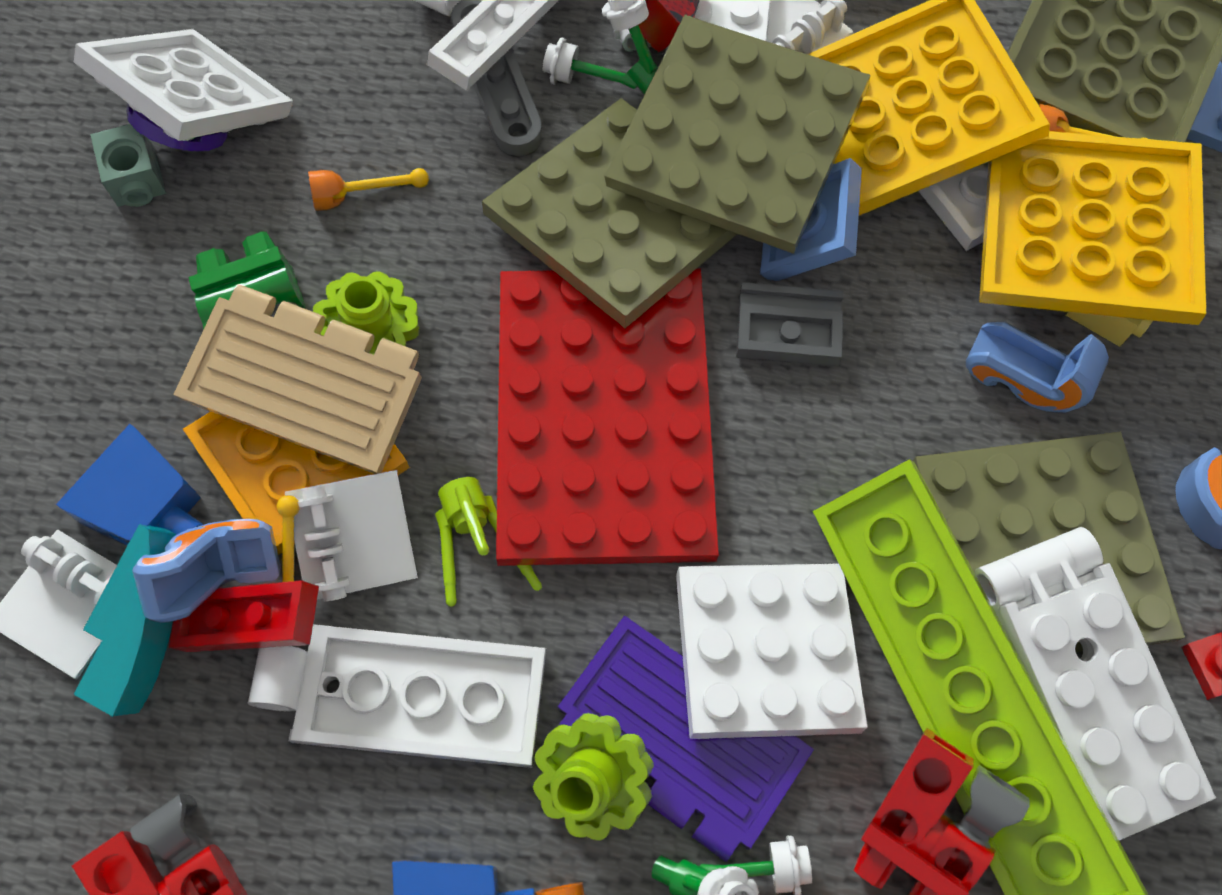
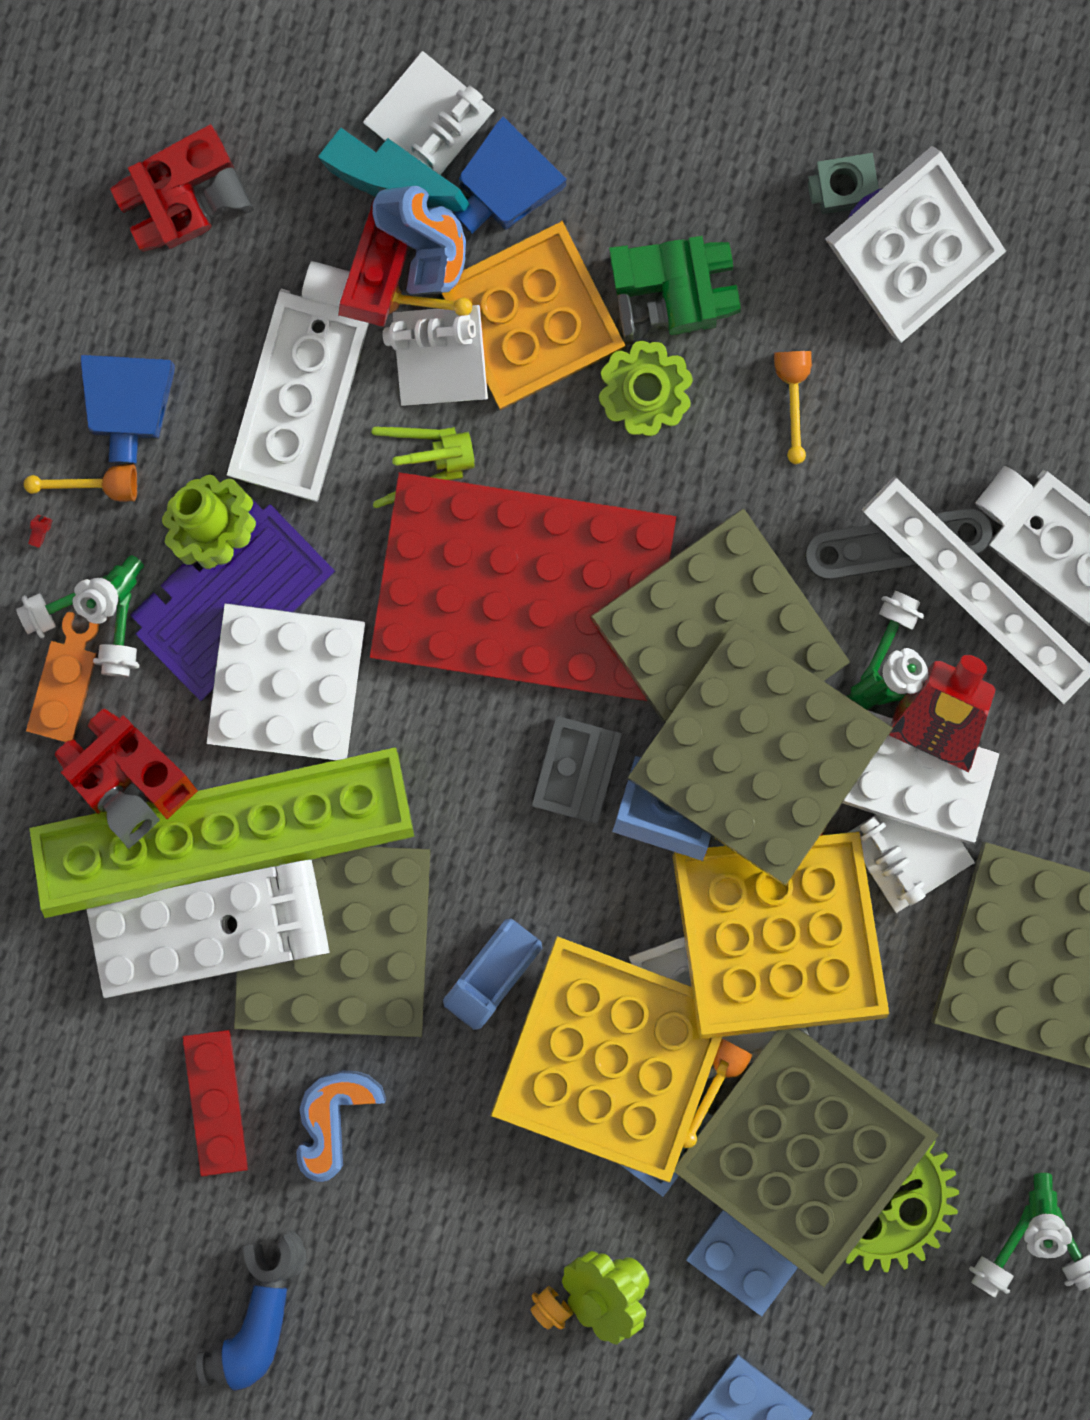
camera: 100 degrees right, 20 degrees up
(301, 383) = (576, 326): tan hinge -> none

